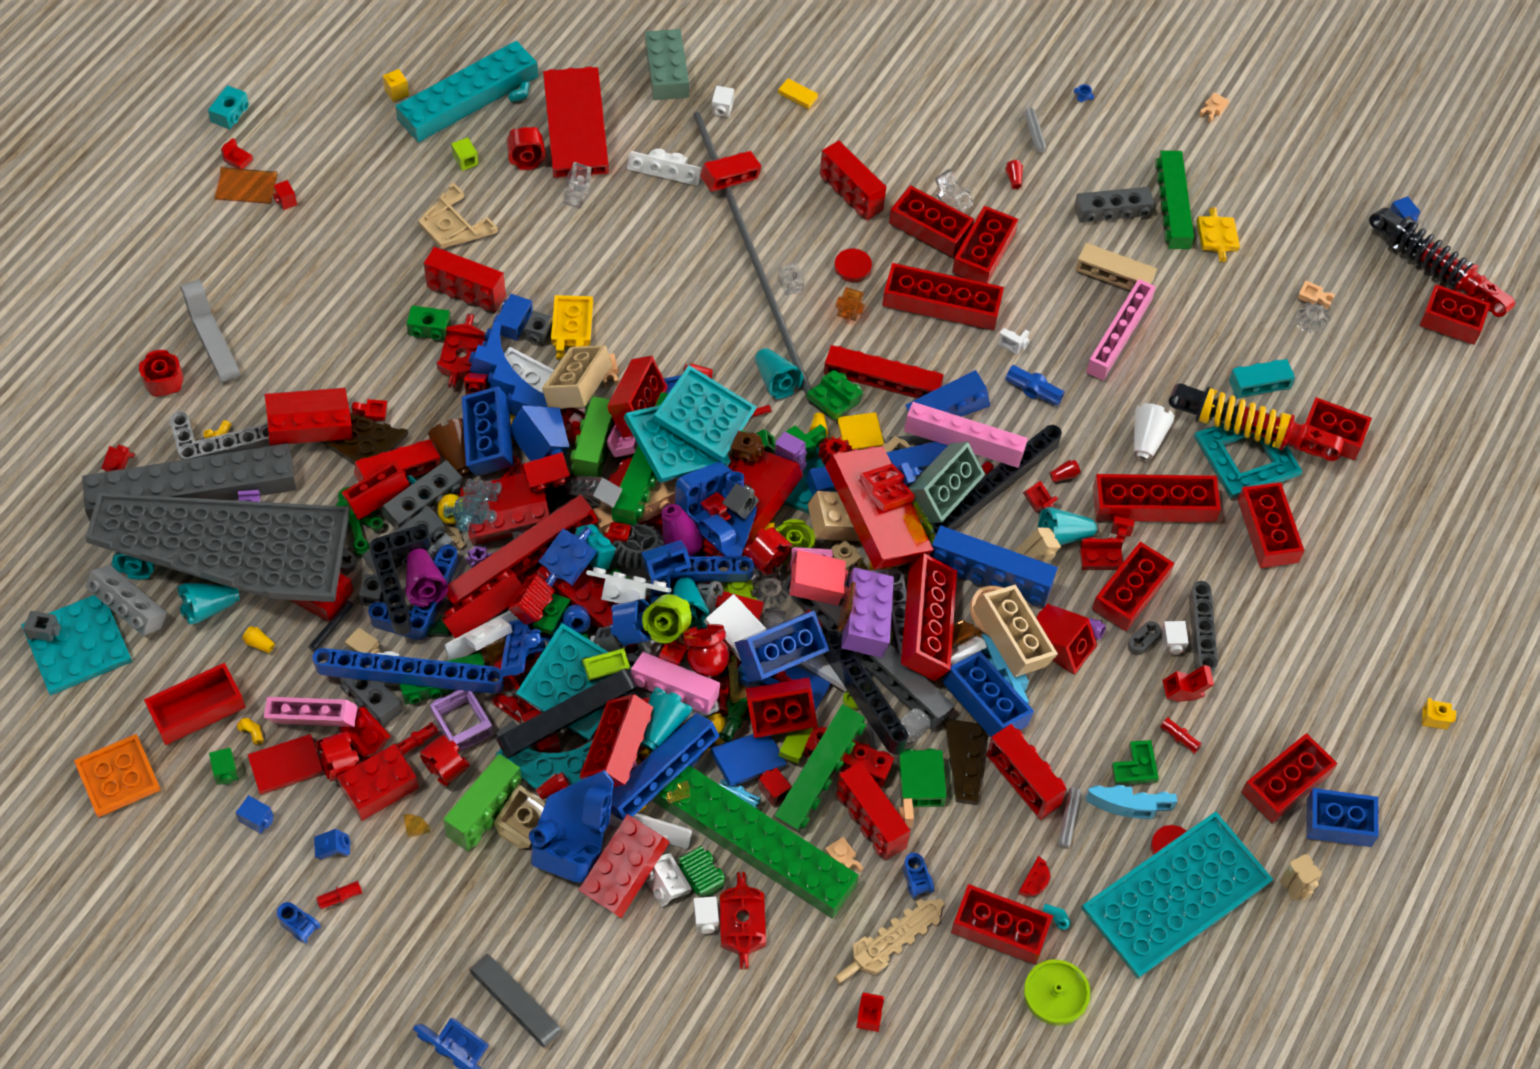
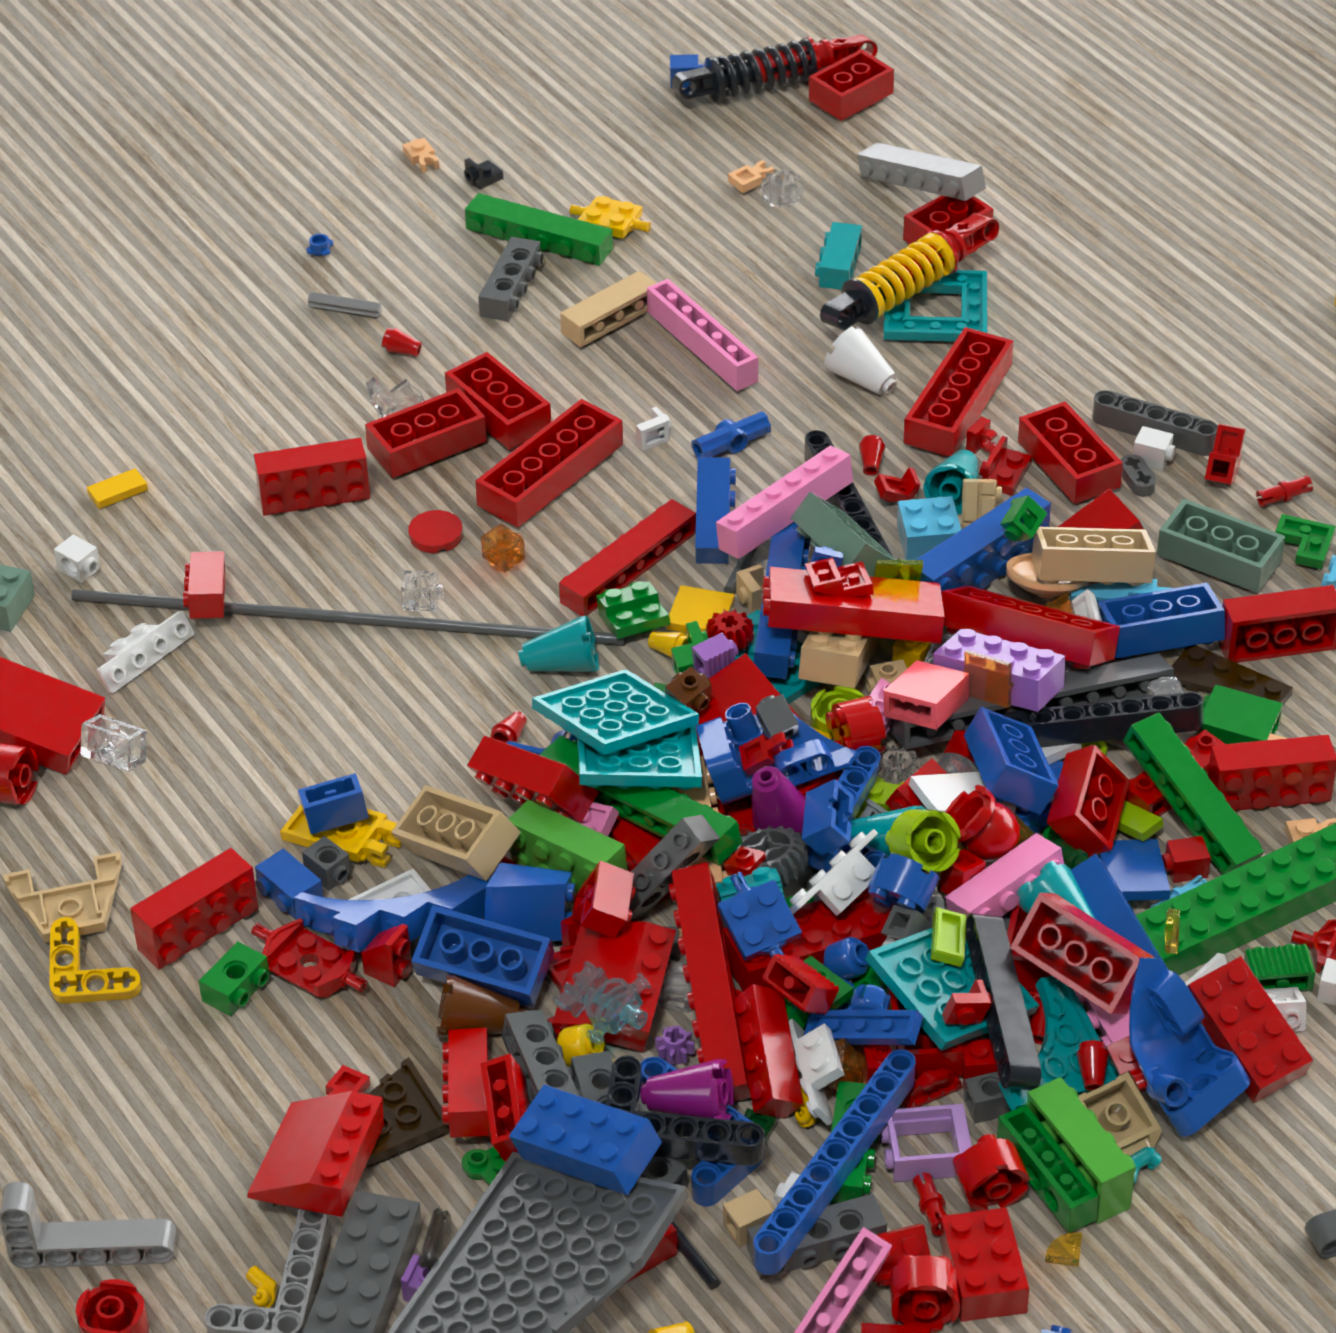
camera: 60 degrees left, 15 degrees down
(277, 495) = (434, 1238): none -> clear smoke axle
(349, 533) = (585, 1139): none -> blue brick
(398, 247) = (72, 974): none -> yellow beam
(458, 788) = (1050, 1169): none -> green brick
(500, 841) = (1145, 1156): none -> teal arm
(542, 693) = (968, 1007): none -> red bracket
(577, 307) = (333, 803): none -> blue slope
(1006, 527) = (925, 524): none -> medium azure brick
(1007, 579) = (1022, 519): none -> green brick
(1090, 710) = (1220, 545): none -> sand green brick
(1215, 147) = (482, 174): none -> black bracket
(1270, 525) = (1048, 318): red brick -> none
(1372, 389) = (921, 171): none -> light grey brick

